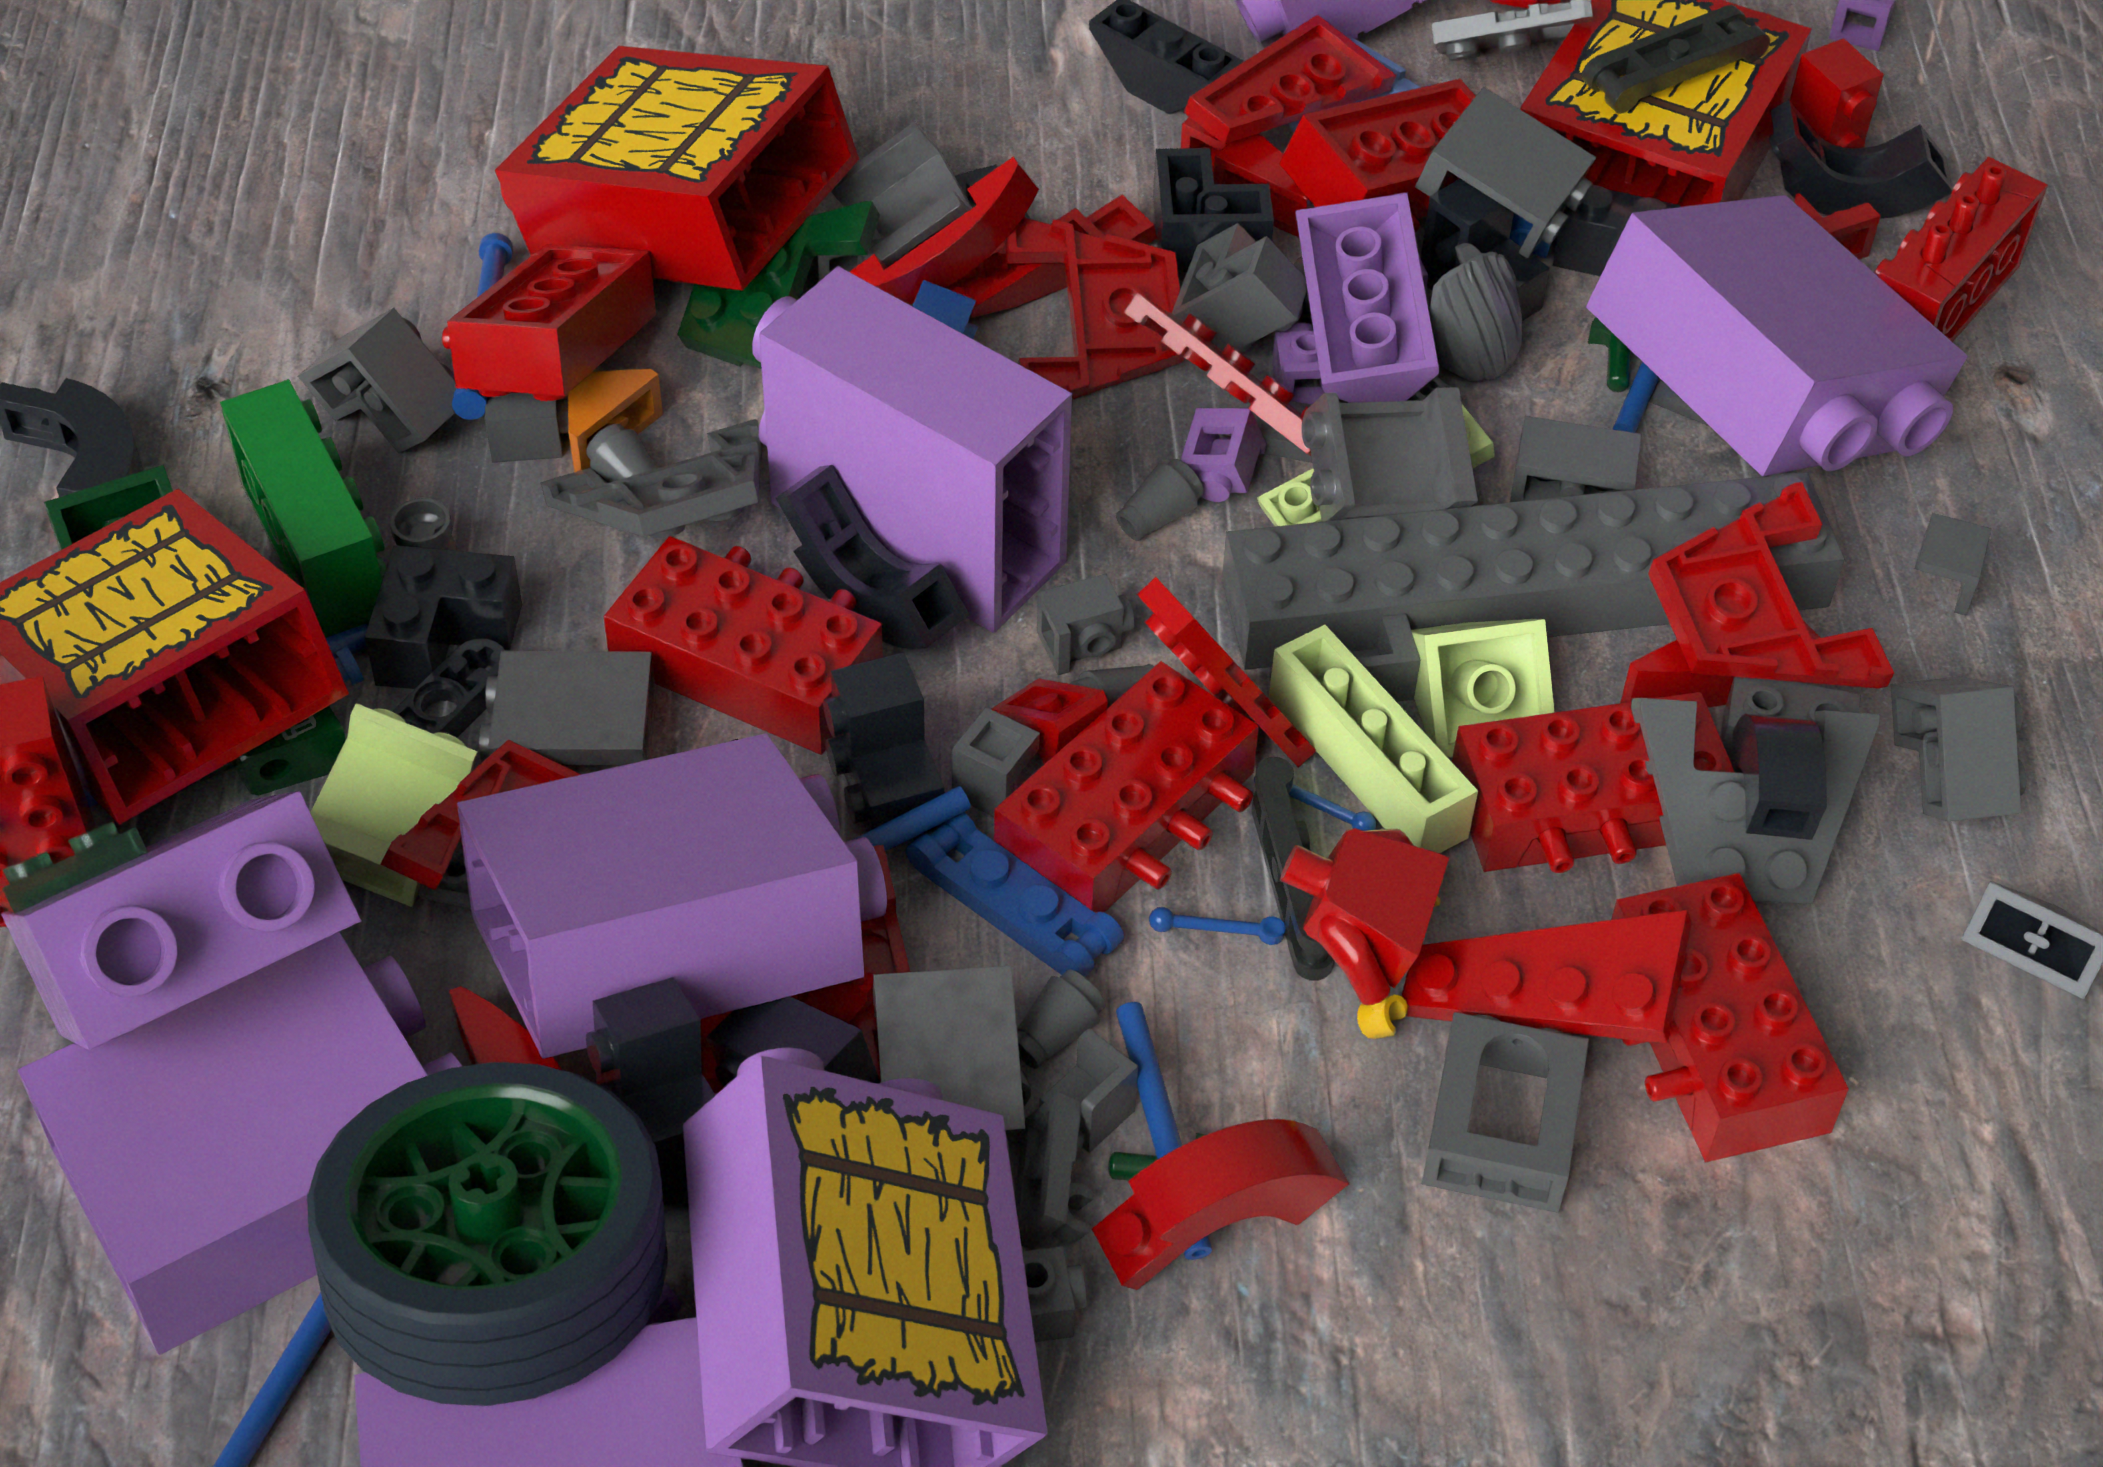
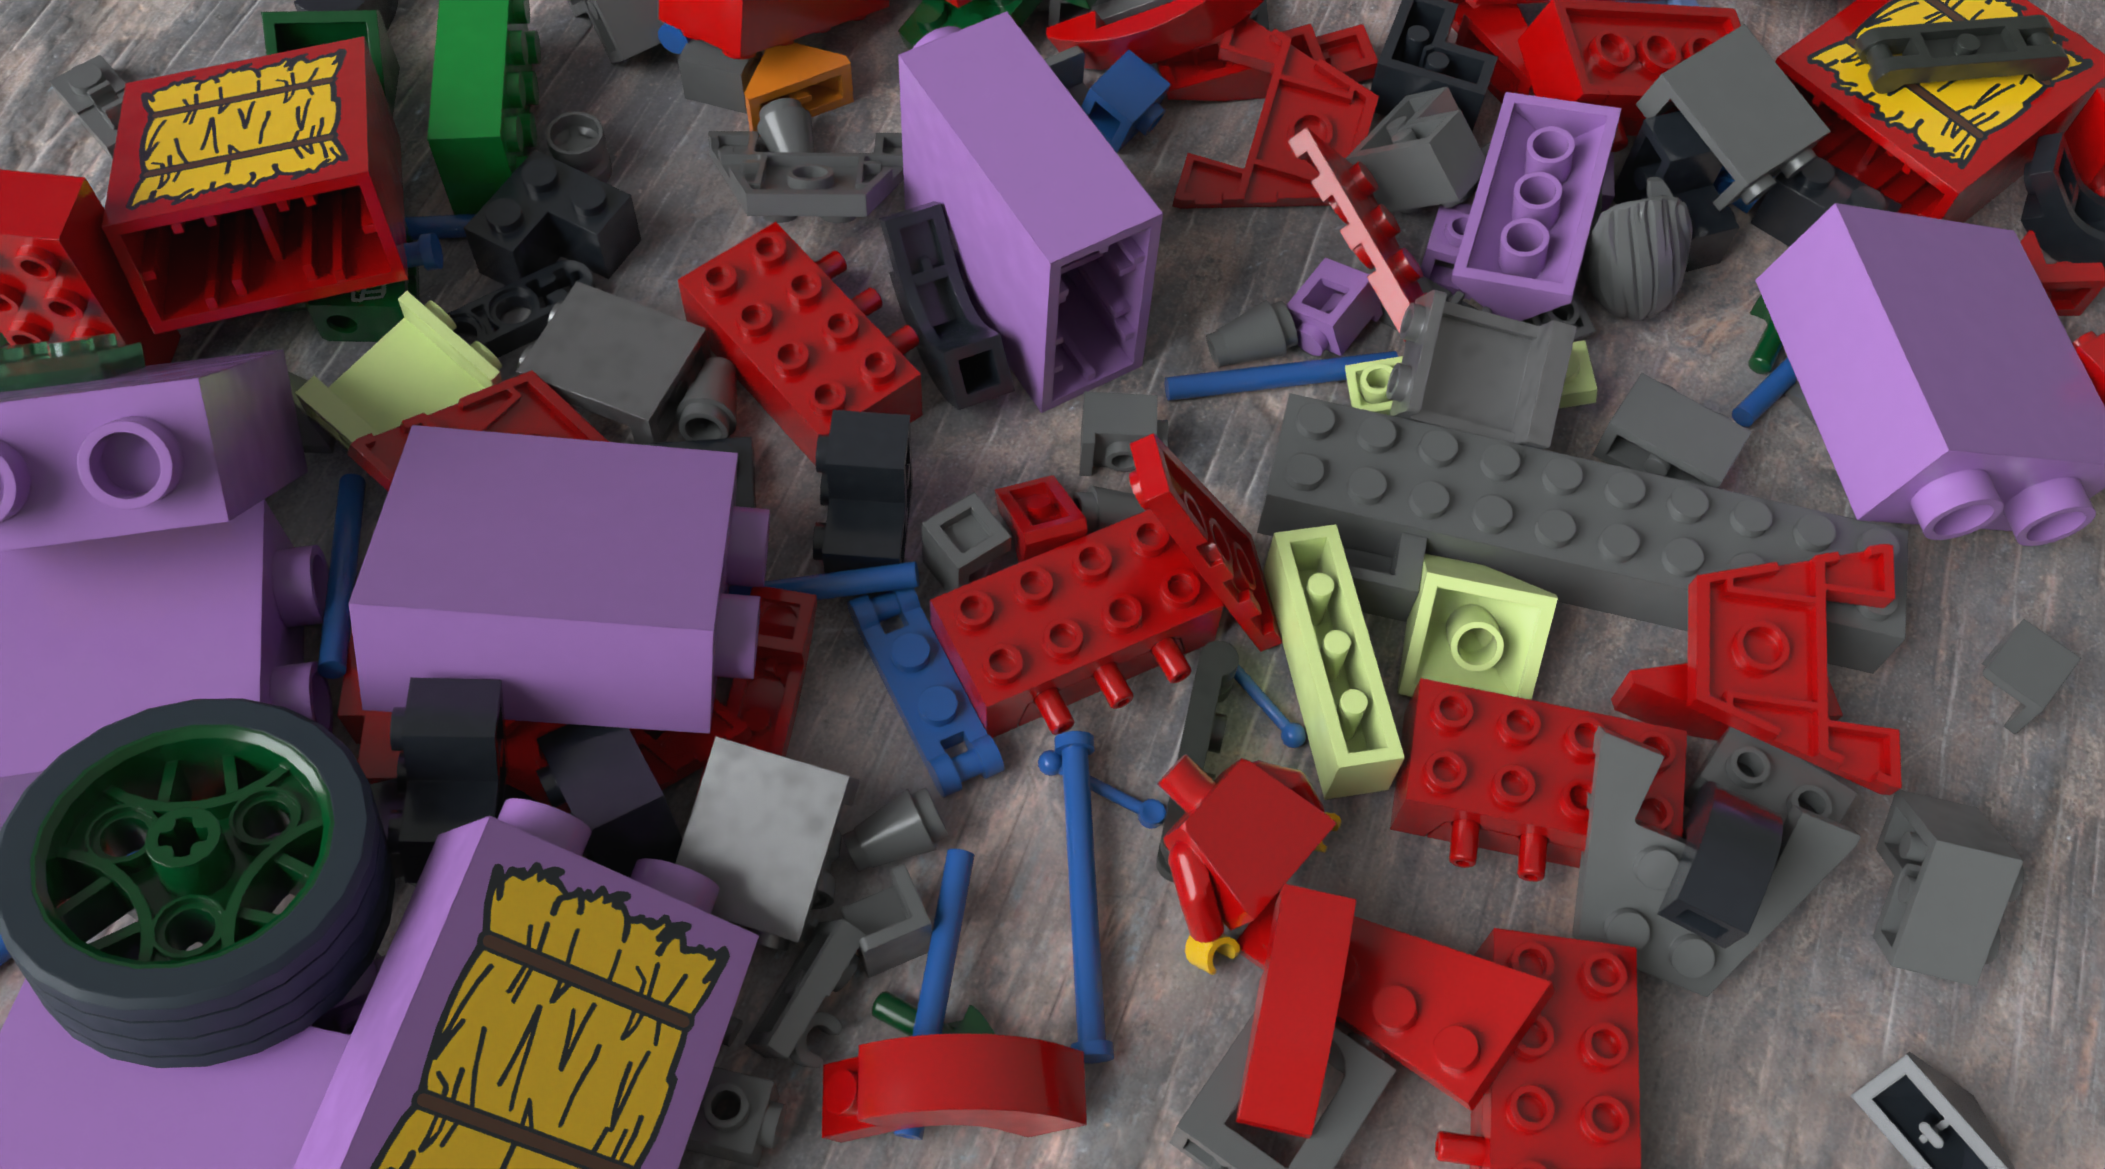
camera: 20 degrees right, 10 degrees up
(435, 1011) = (341, 577): none -> blue bar
(681, 718) = (710, 402): none -> dark grey cone
(1180, 896) = (1088, 983): none -> blue bar
(1185, 534) = (1264, 377): none -> blue bar
(1486, 1013) = (1296, 1010): none -> red slope

